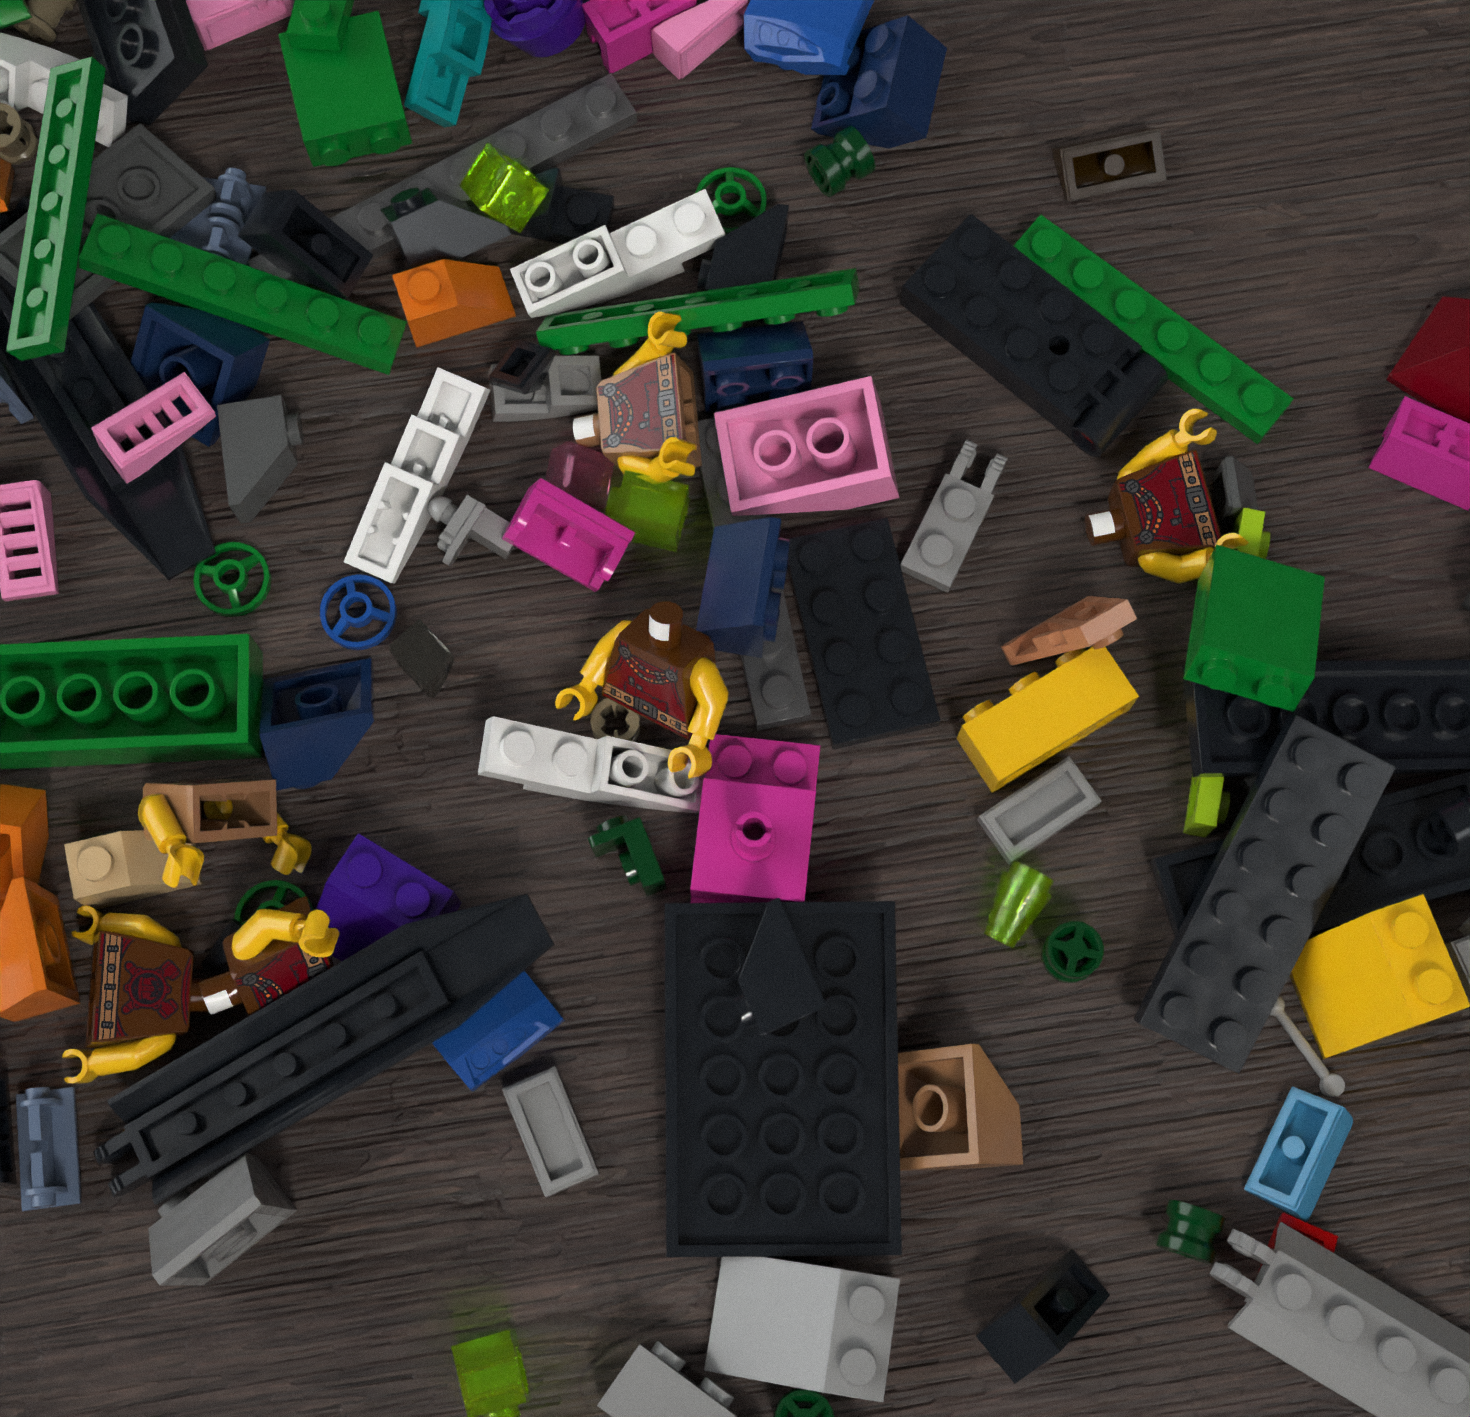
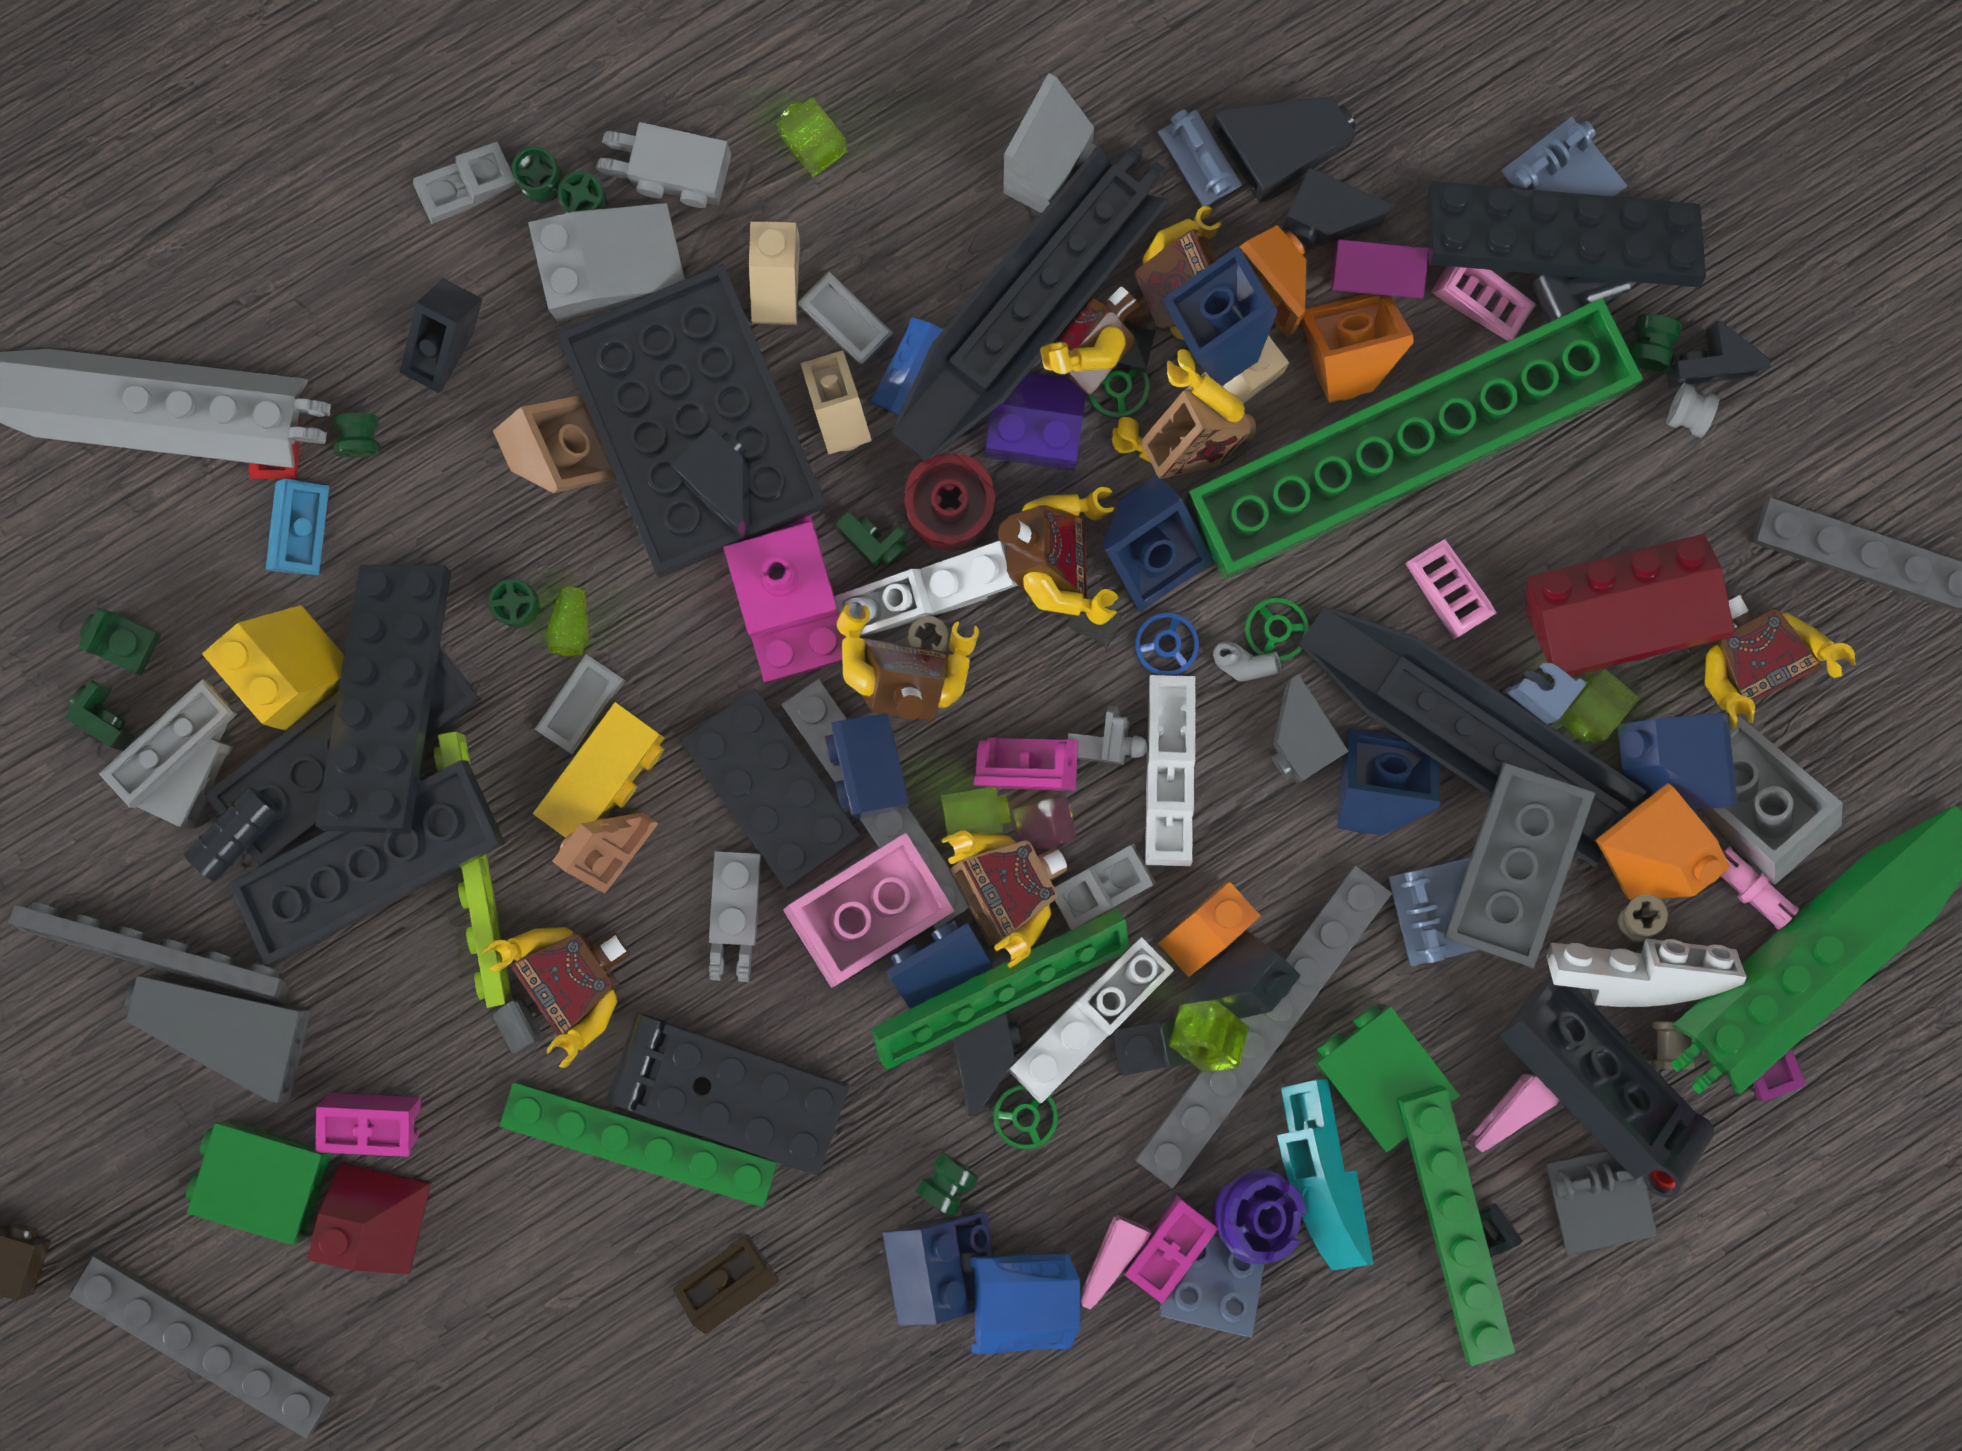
camera: 160 degrees right, 10 degrees up
(56, 210) = (1549, 850): green plate -> none
(103, 914) = (1223, 316): none -> dark blue slope
(149, 452) = (1408, 680): bright pink slope -> none
(241, 294) = (1375, 853): green plate -> none
(284, 551) = (1242, 664): none -> light grey arm
(305, 242) = (1344, 915): black slope -> none
(438, 741) = (1050, 556): none -> torso
(516, 821) = (947, 476): none -> dark red brick
(523, 367) = (1125, 887): black slope -> none
(603, 1032) = (836, 402): none -> tan slope
(609, 1219) = (774, 272): none -> tan slope
(1255, 628) = (458, 888): green brick -> none
(1330, 1084) = (292, 589): light grey hinge -> none

